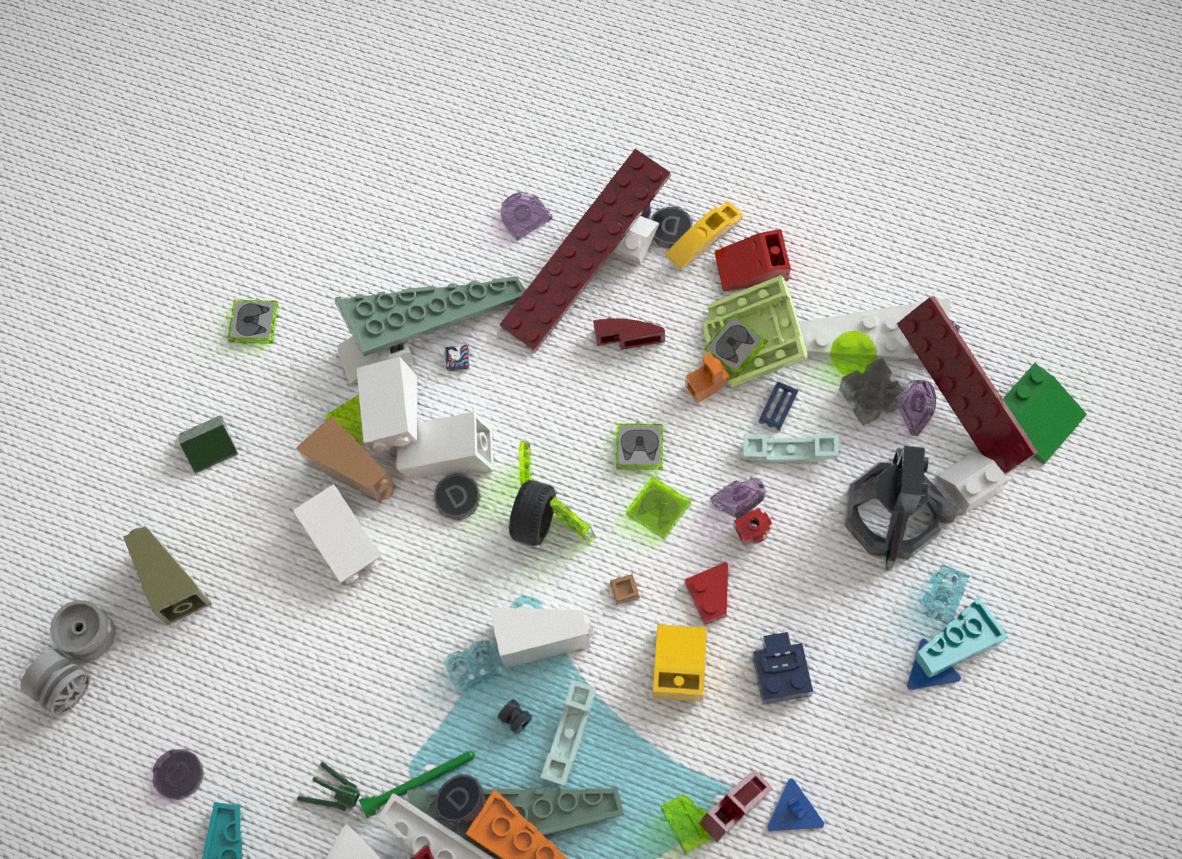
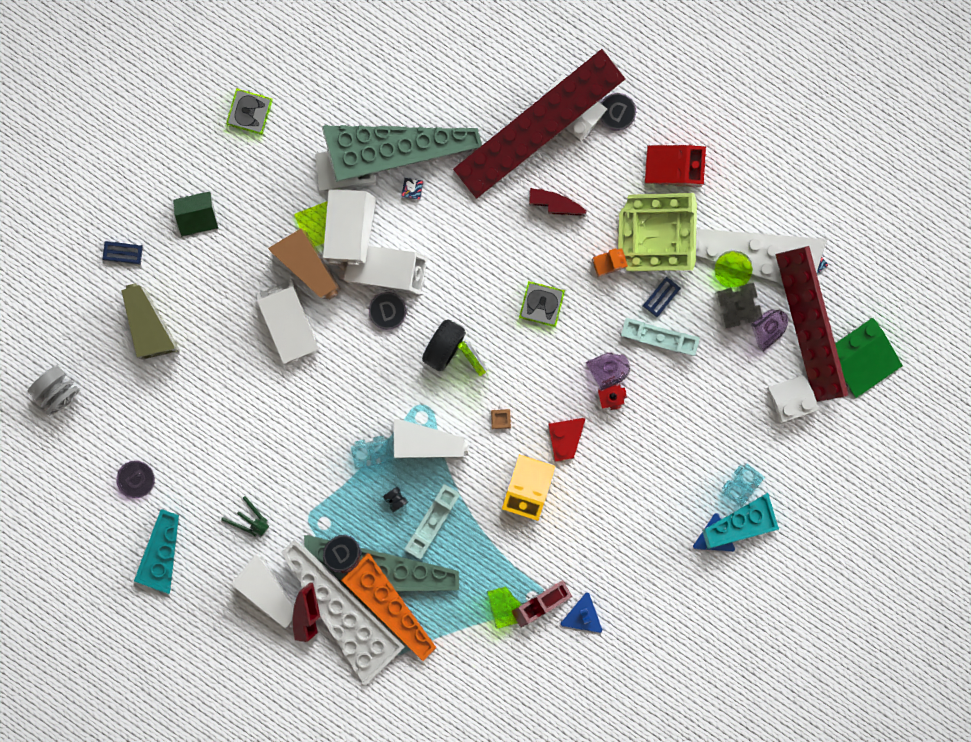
camera: 10 degrees right, 20 degrees up
(82, 630) = (89, 352): light grey wheel -> none
(146, 504) = (122, 260): none -> dark blue tile
(372, 804) = (277, 537): green piece -> none
(523, 214) = (495, 67): clear purple tile -> none
(525, 461) = (446, 304): clear neon green tile -> none
(658, 507) = (543, 359): clear neon green tile -> none
(702, 234) = (642, 129): yellow slope -> none
(735, 344) = (640, 240): tile -> none
(781, 670) = (603, 512): dark blue piece -> none
(902, 491) = (728, 407): black plate -> none

